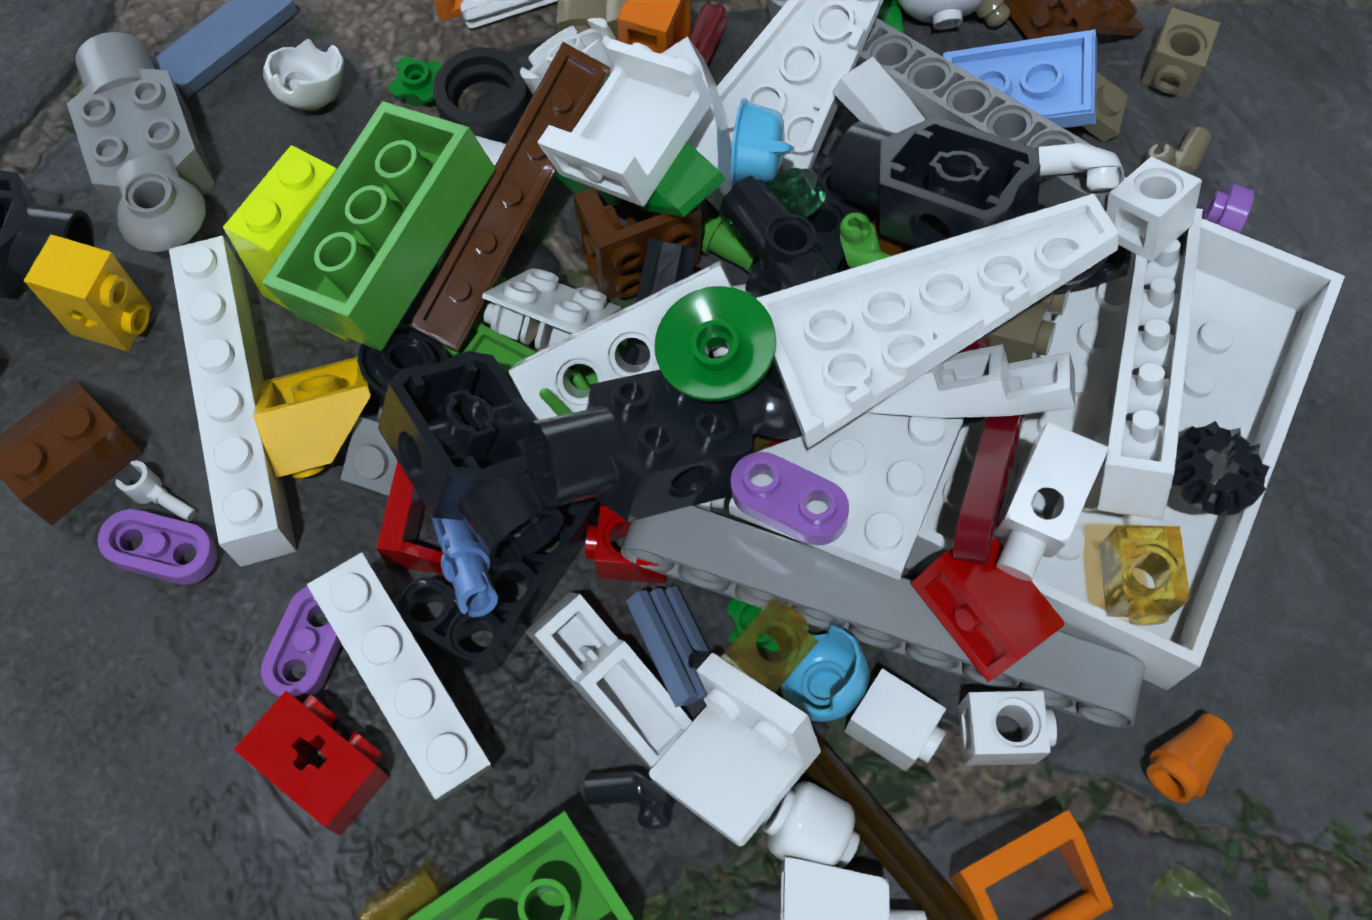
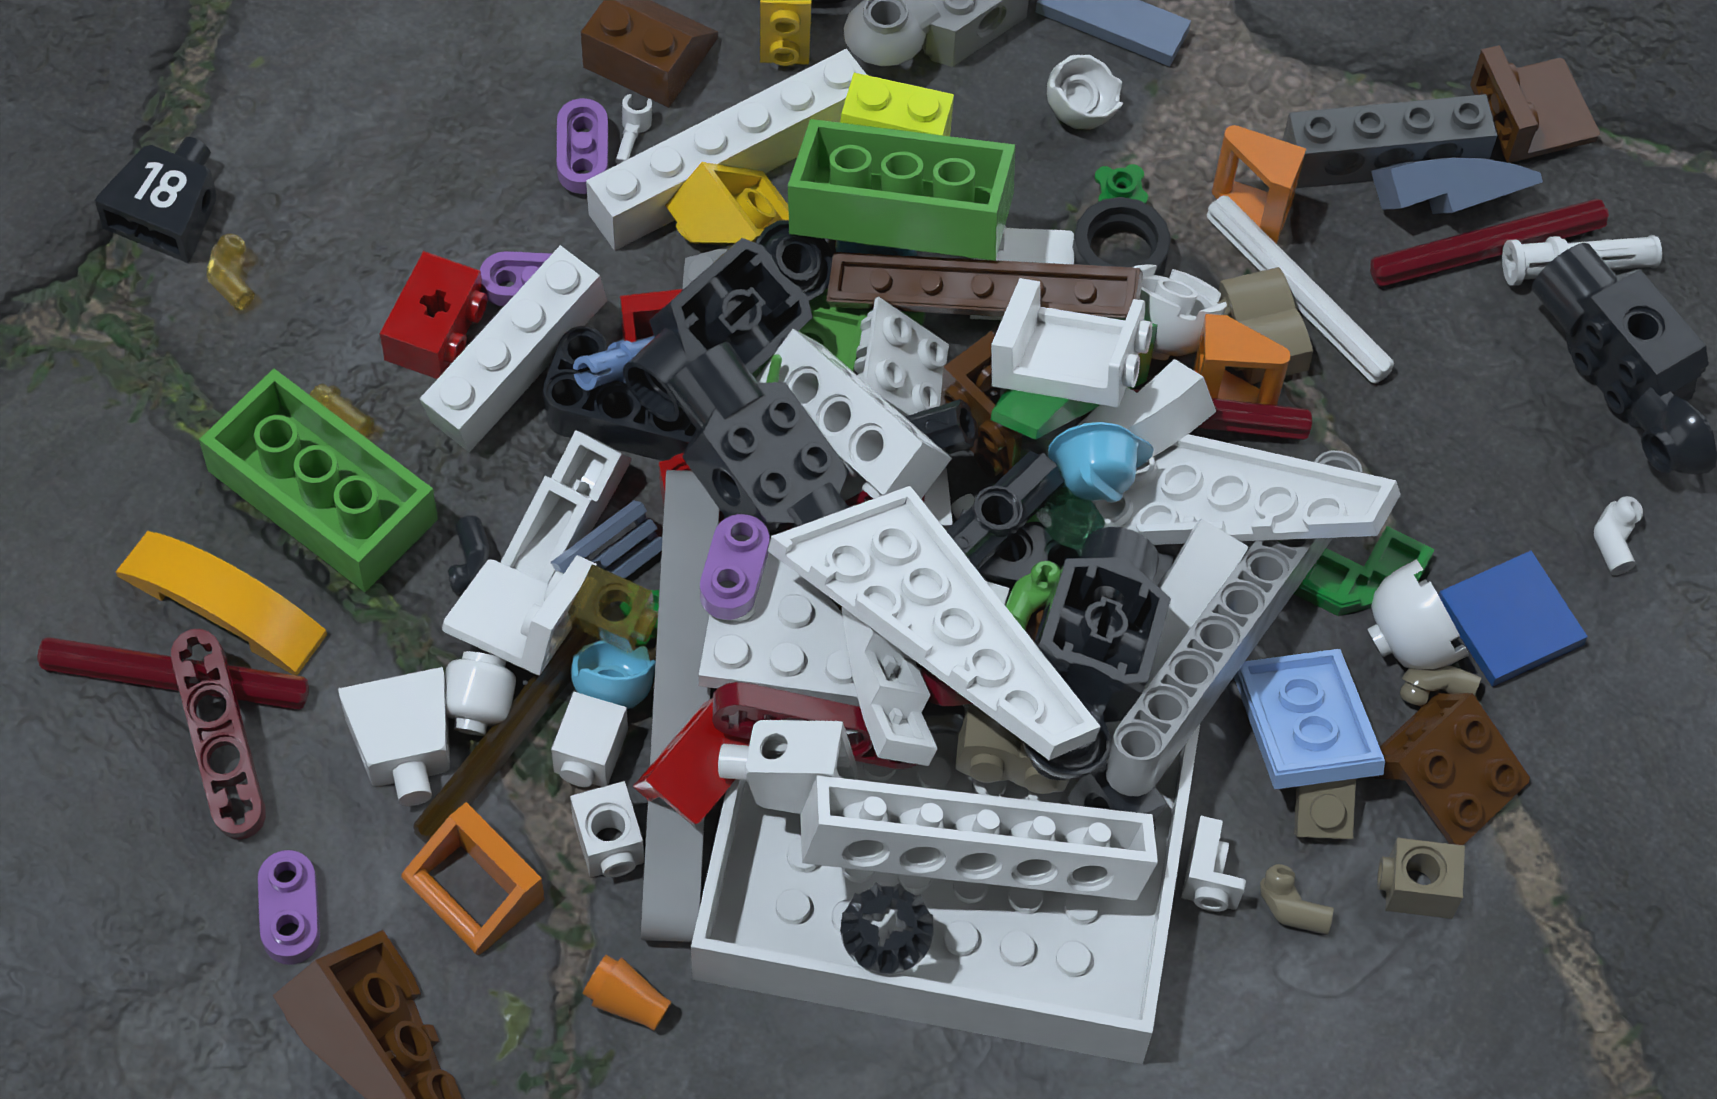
camera: 70 degrees right, 5 degrees down
(712, 319) = (844, 446): green dish -> none
(1080, 158) = (1142, 718): white arm -> none
(1153, 207) = (1125, 800): white brick -> none
(1158, 553) = (762, 846): clear yellow brick -> none
(1229, 207) = (1205, 933): medium lavender plate -> none

